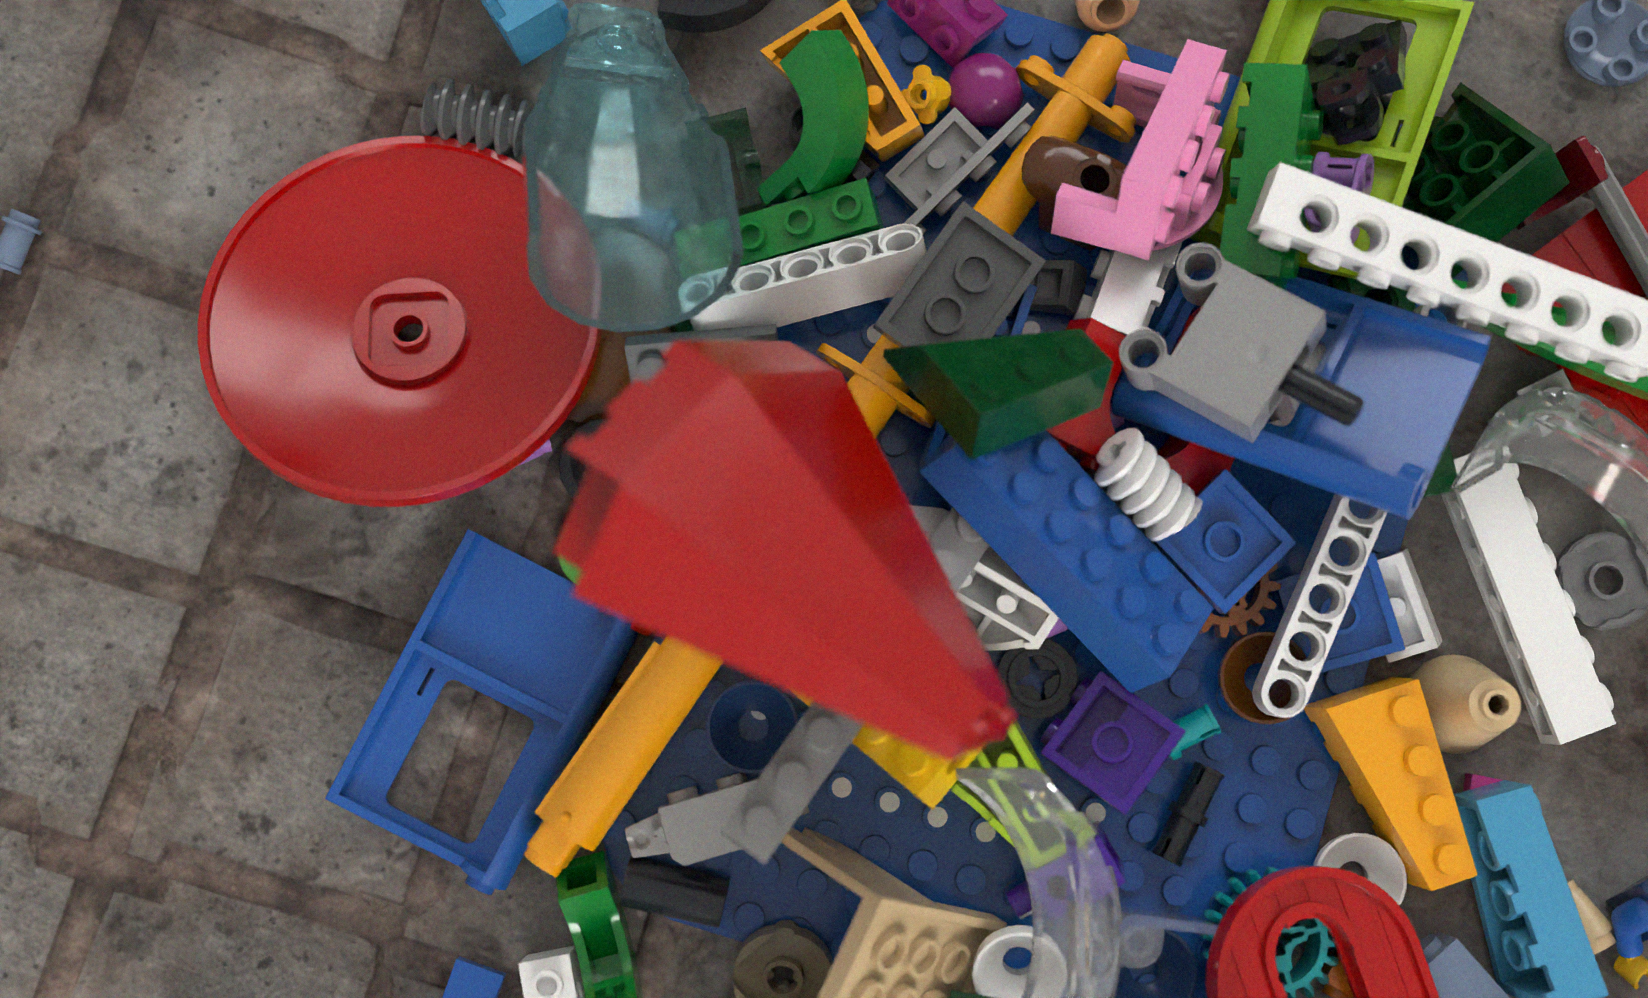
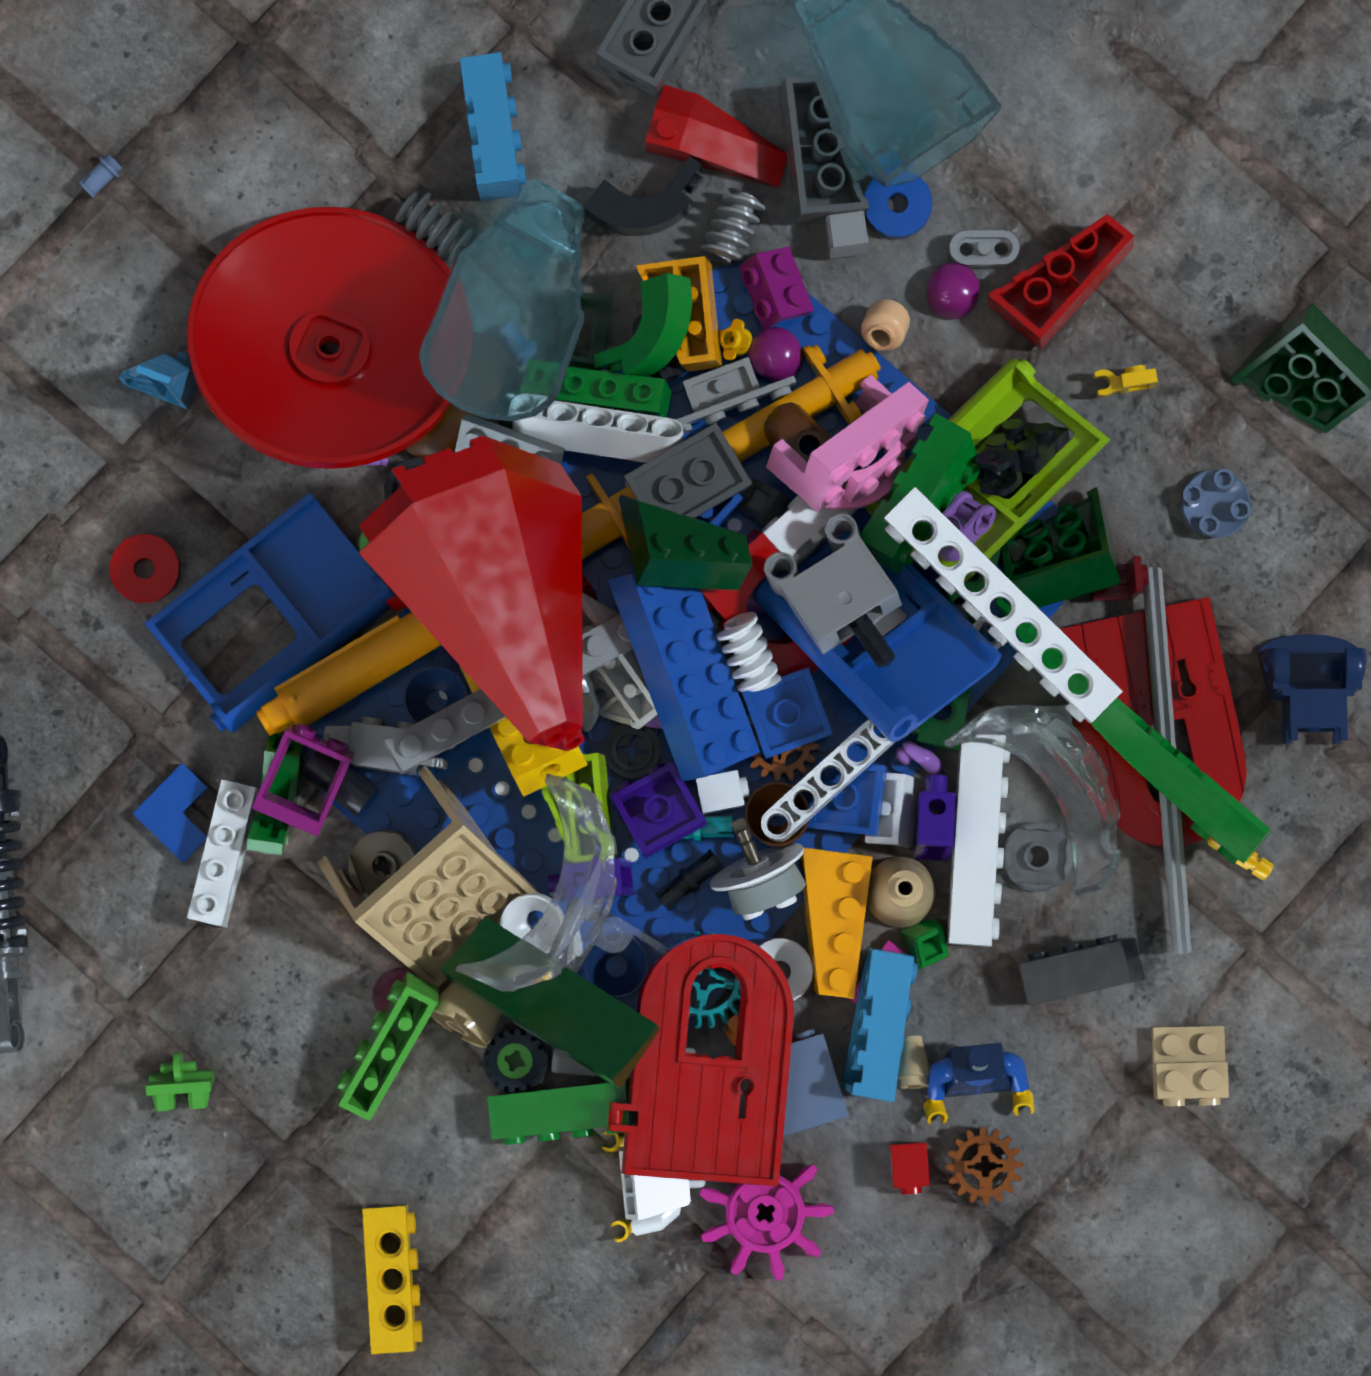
camera: 30 degrees right, 0 degrees up
(204, 466) = (163, 377): none -> dark azure wedge
(267, 716) = (132, 552): none -> red tile
(634, 968) = (291, 812): none -> magenta window
(1186, 686) = (722, 792): none -> white brick
(1288, 772) = (760, 877): none -> piece
(1420, 523) = (923, 756): none -> medium lavender arm
(1465, 594) = (934, 832): none -> dark purple torso
(1520, 754) = (925, 942): none -> green slope

